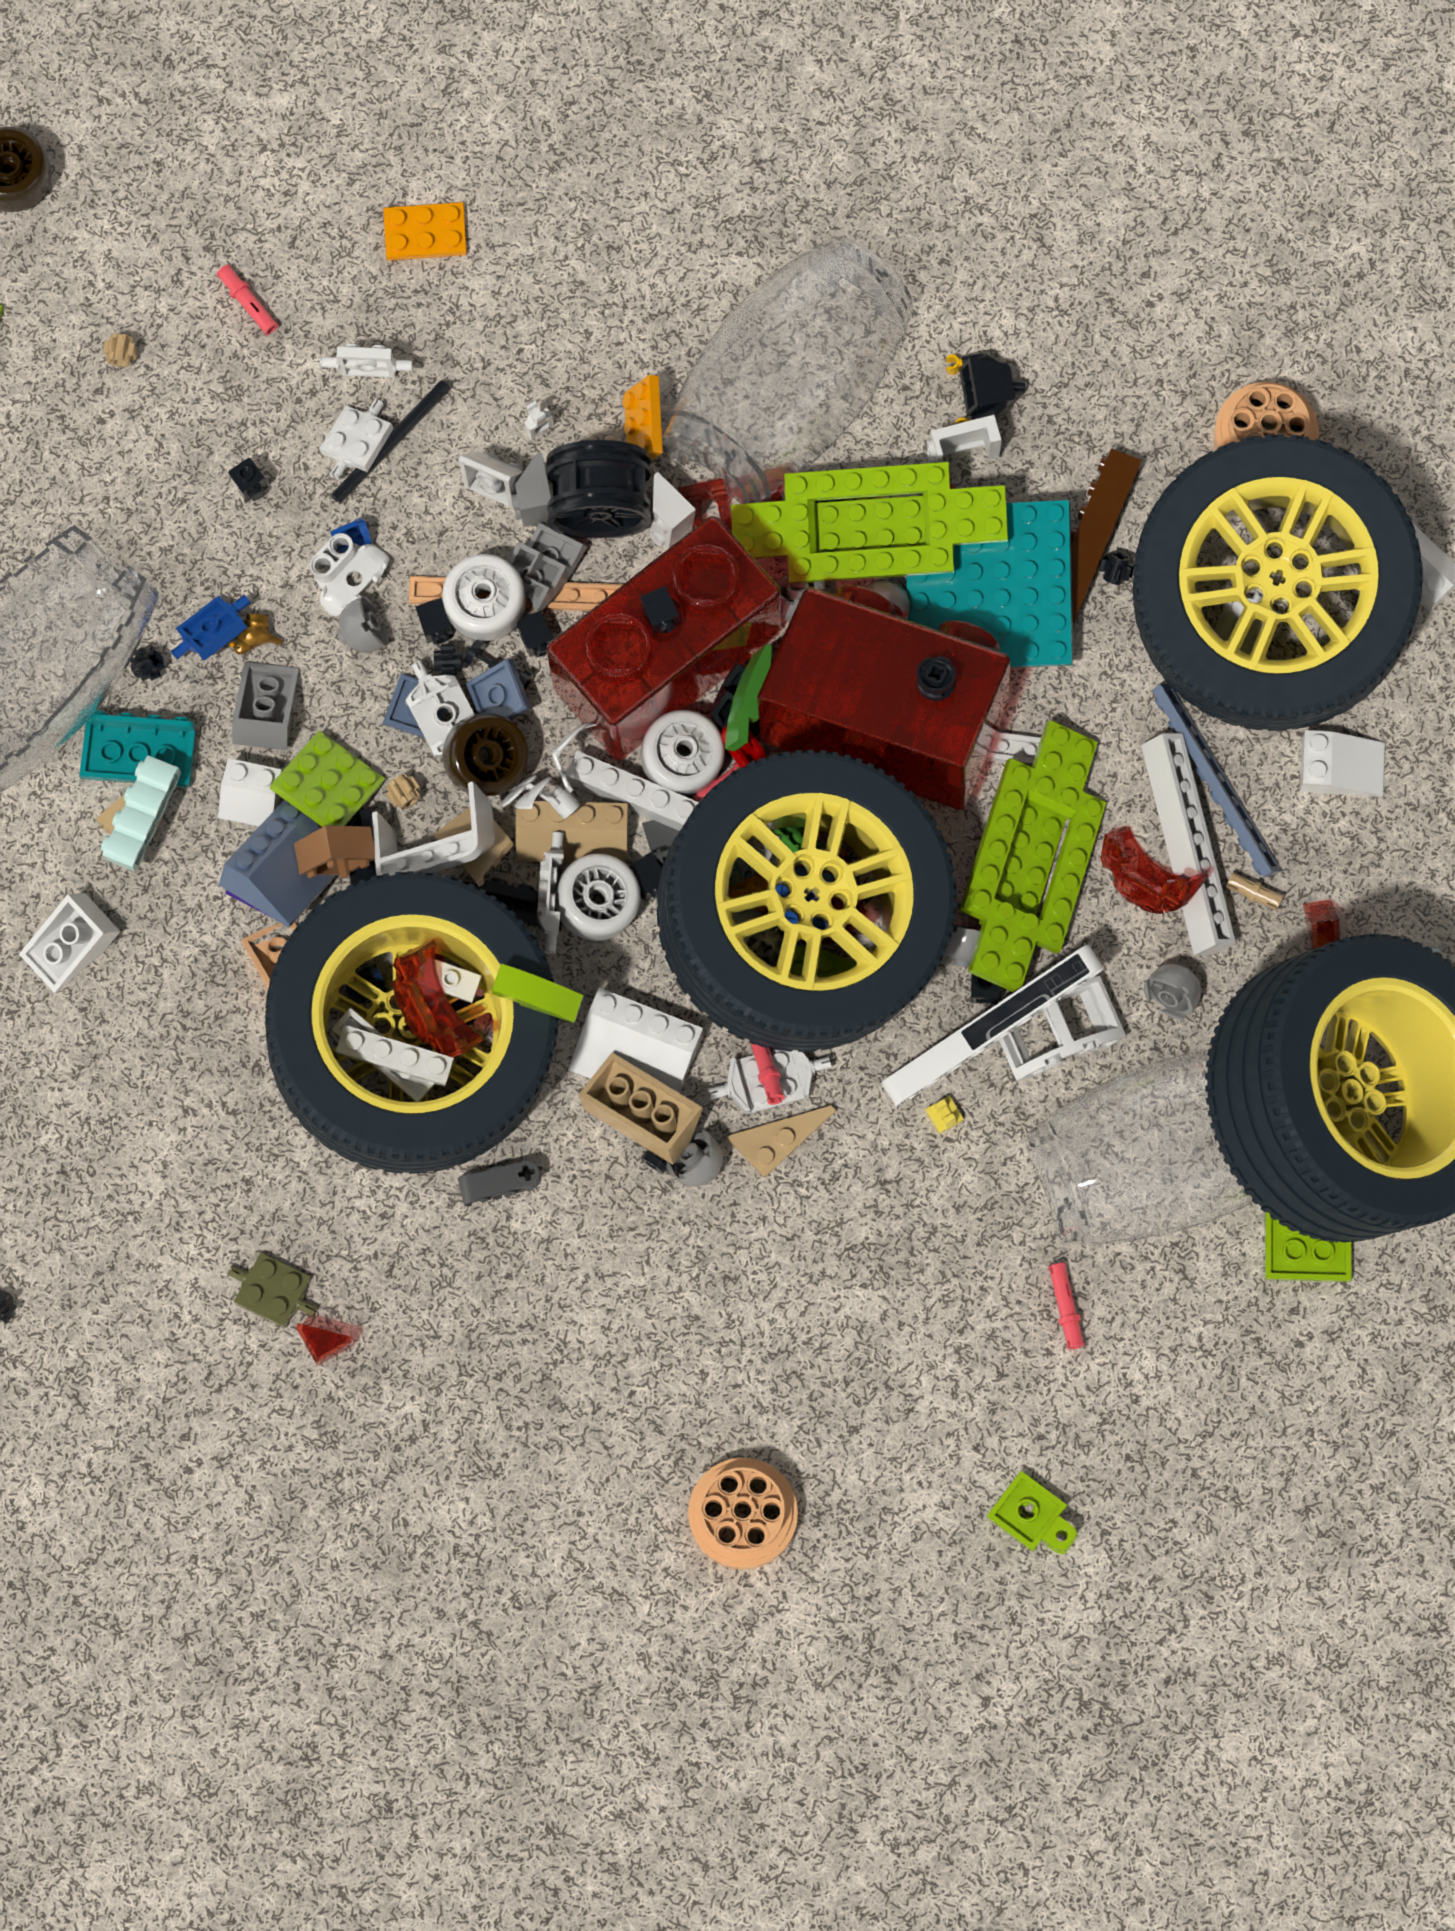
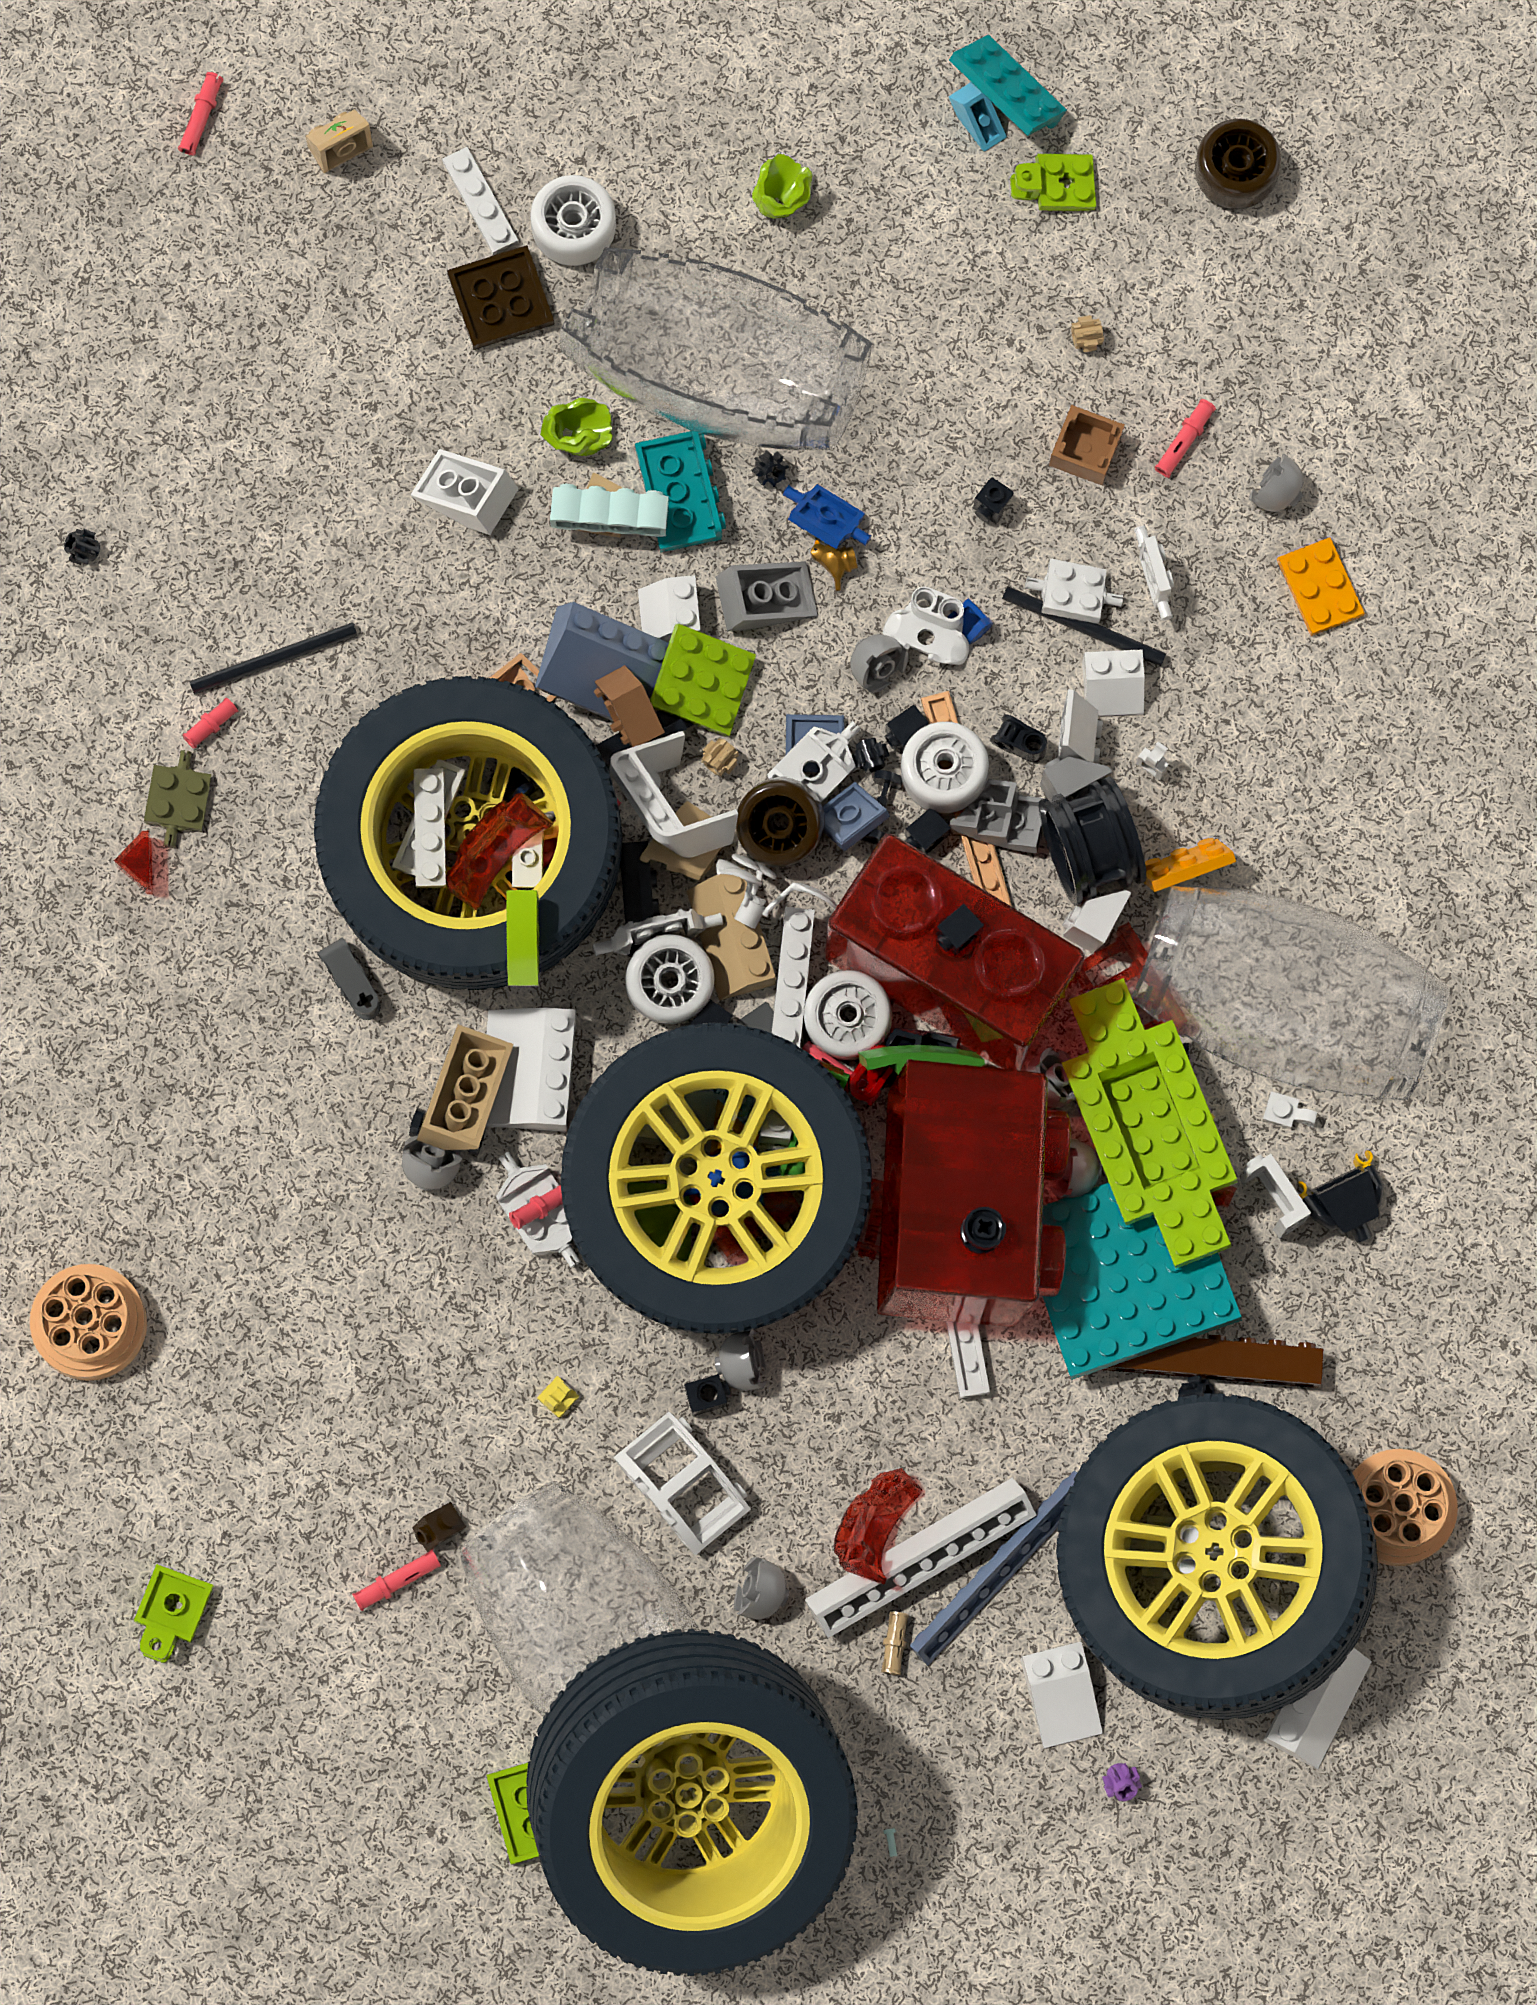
camera: 65 degrees right, 0 degrees up
(48, 813) = (587, 421): none -> lime hair
(167, 1155) = (273, 658): none -> black piece
(210, 1239) = (210, 723): none -> coral pin
(225, 383) = (1086, 445): none -> medium nougat container
(321, 229) = (1279, 486): none -> light grey cylinder
(452, 430) = (1114, 682): none -> white slope
(473, 532) = (1018, 738): none -> black piece
(772, 1143) = (475, 1234): tan wing -> none
(888, 415) = (1283, 1111): none -> white plate
(992, 1025) = (658, 1413): beam -> none
(1019, 853) = (852, 1387): lime piece -> none
(1029, 1255) = (438, 1526): none -> dark brown bracket
(1321, 923) = (878, 1725): clear red slope -> none
(1433, 738) = (1122, 1782): none -> medium lavender gear

